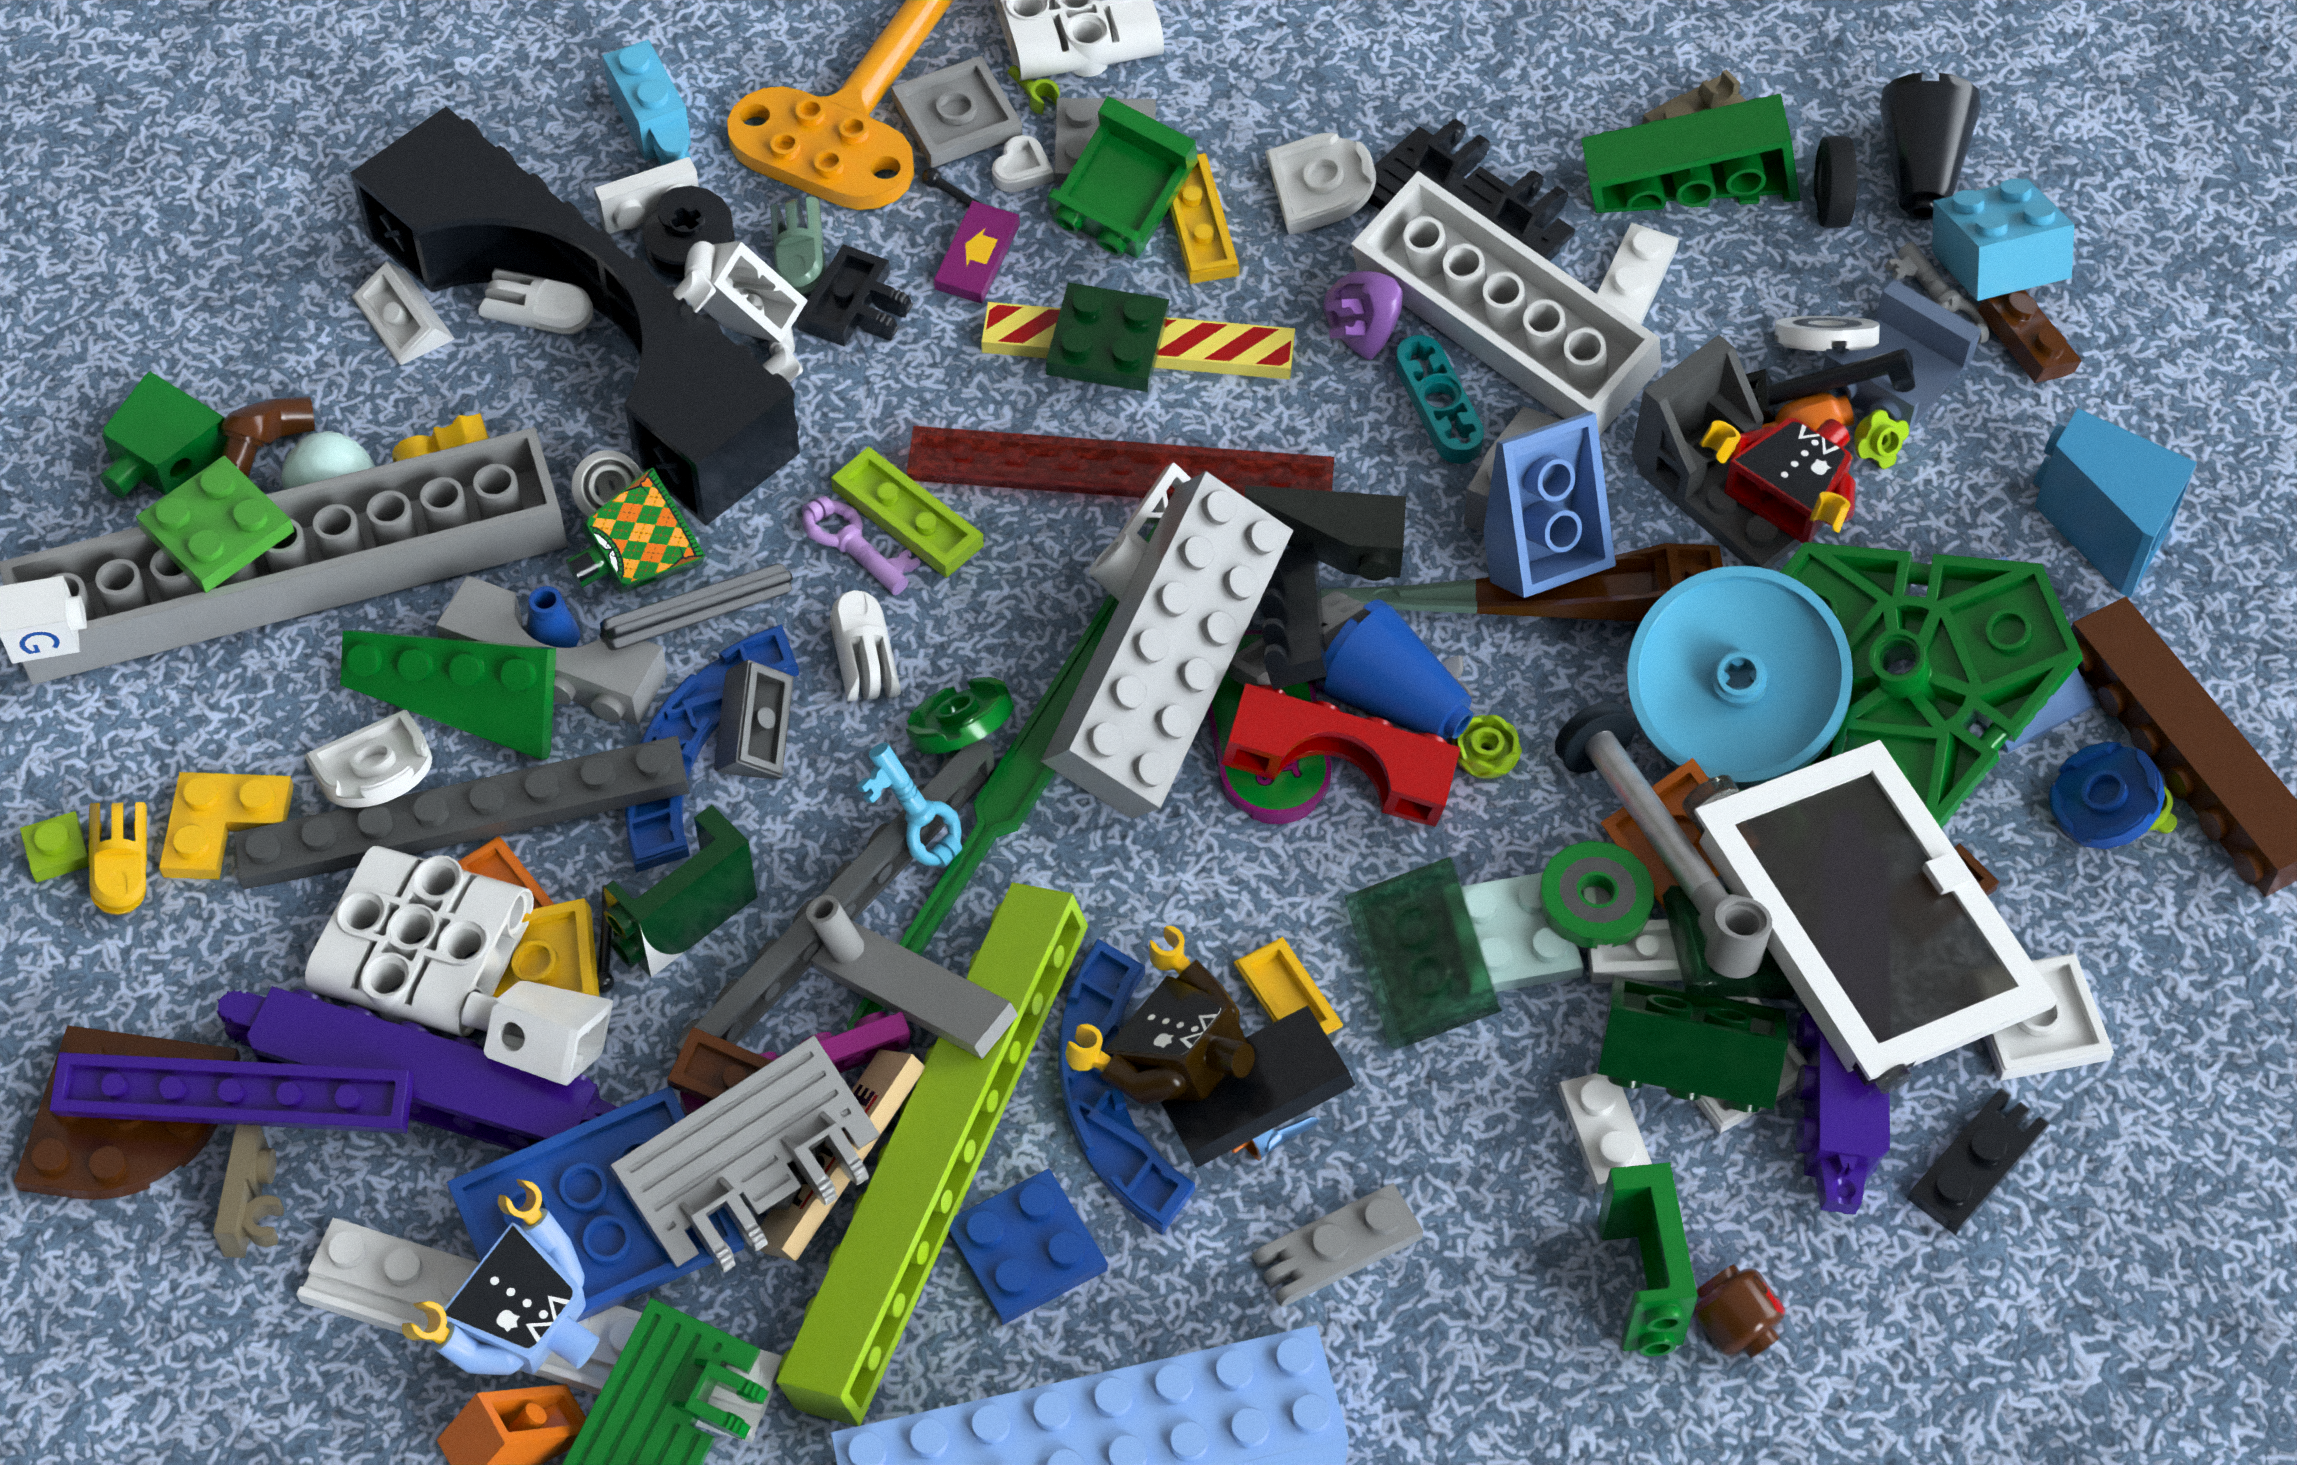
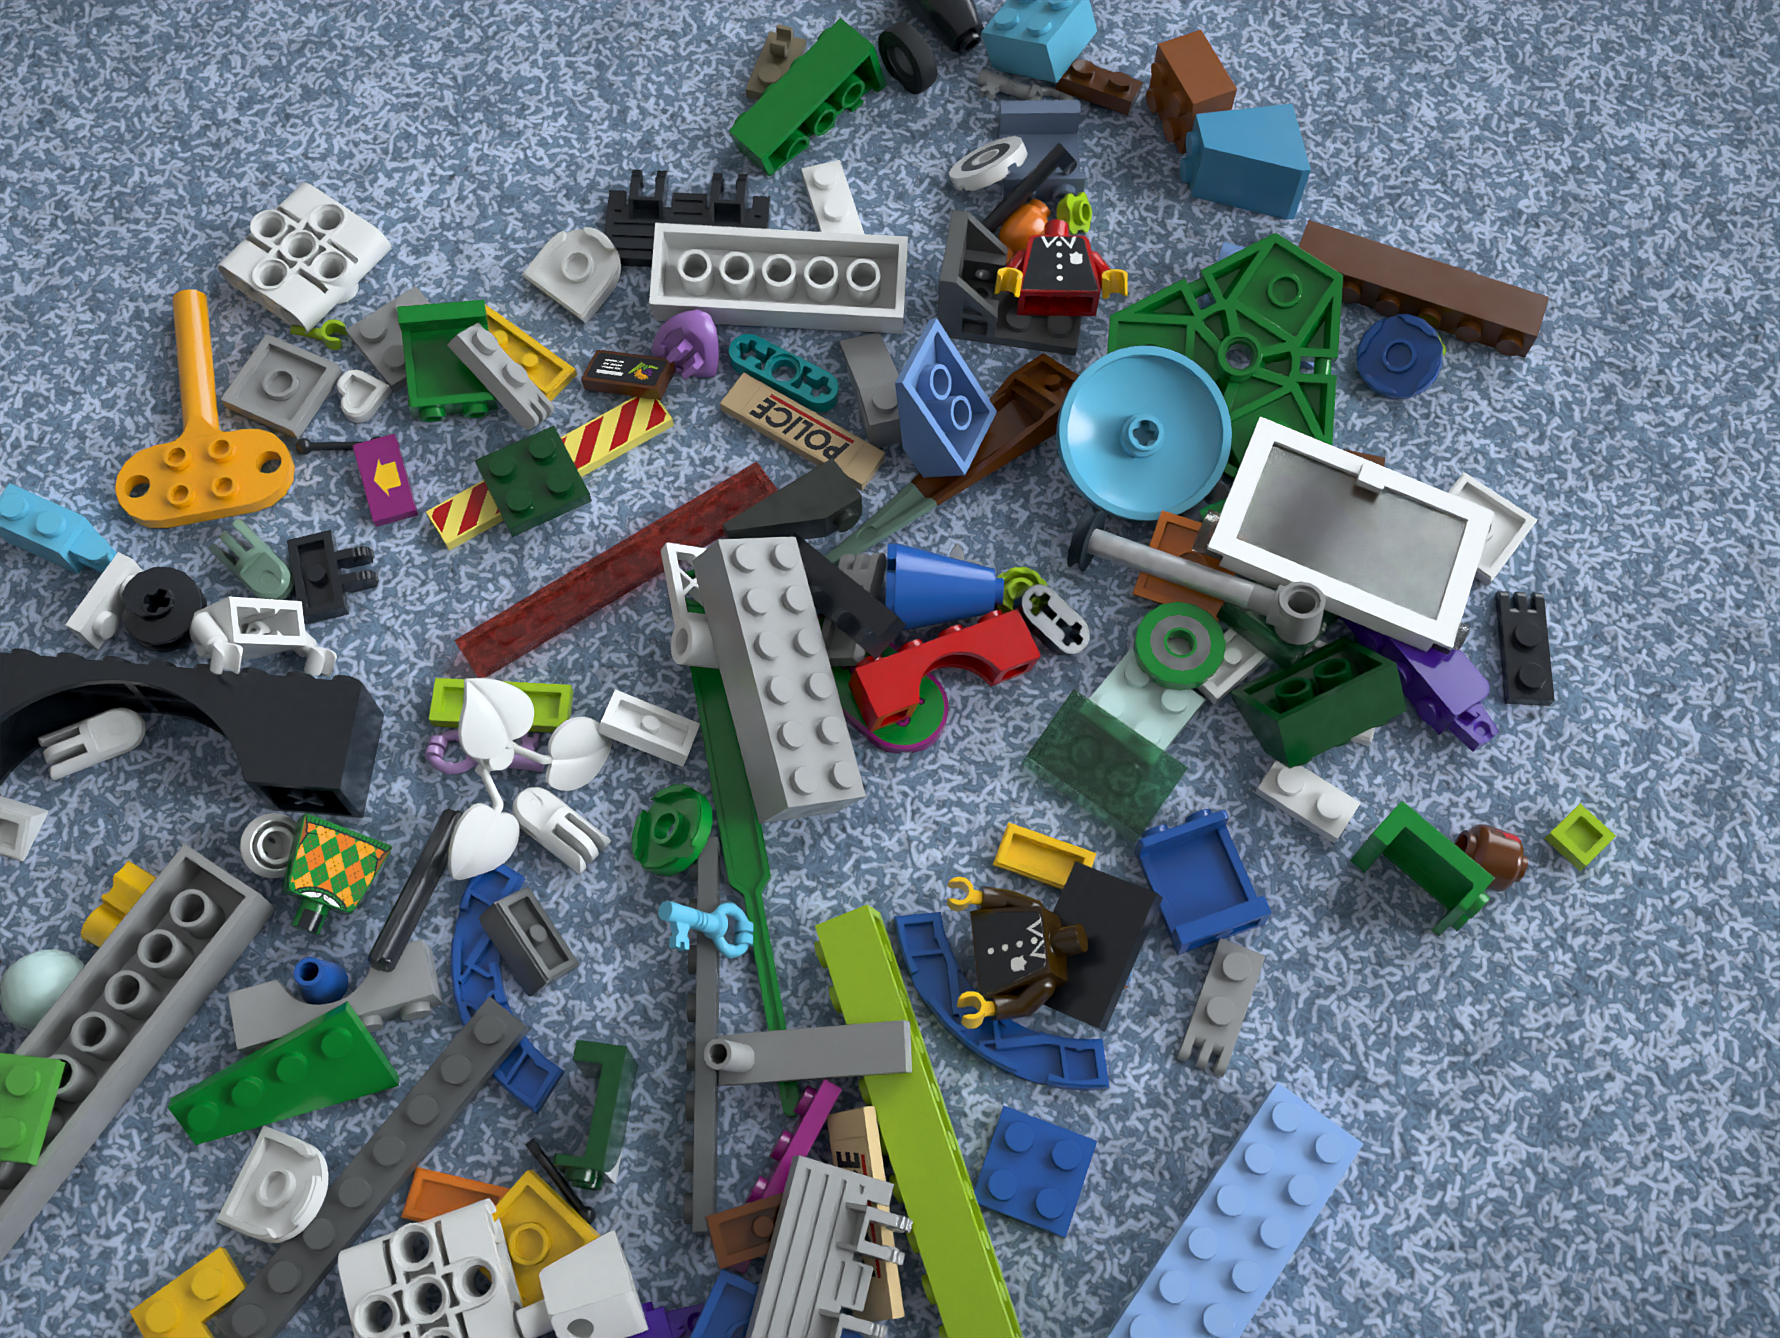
camera: 40 degrees left, 10 degrees up
(860, 486) = (488, 724): none -> white plant
(1019, 618) = (648, 728): none -> white plate
(1158, 224) = (502, 376): none -> light grey hinge
(1284, 302) = (628, 374): none -> tile
(1409, 463) = (801, 429): none -> tan tile
(1421, 1118) = (1200, 881): none -> blue panel
(1504, 783) = (1058, 615): none -> beam
(1859, 1366) = (1580, 837): none -> lime plate
(2116, 374) = (1187, 82): none -> dark orange brick

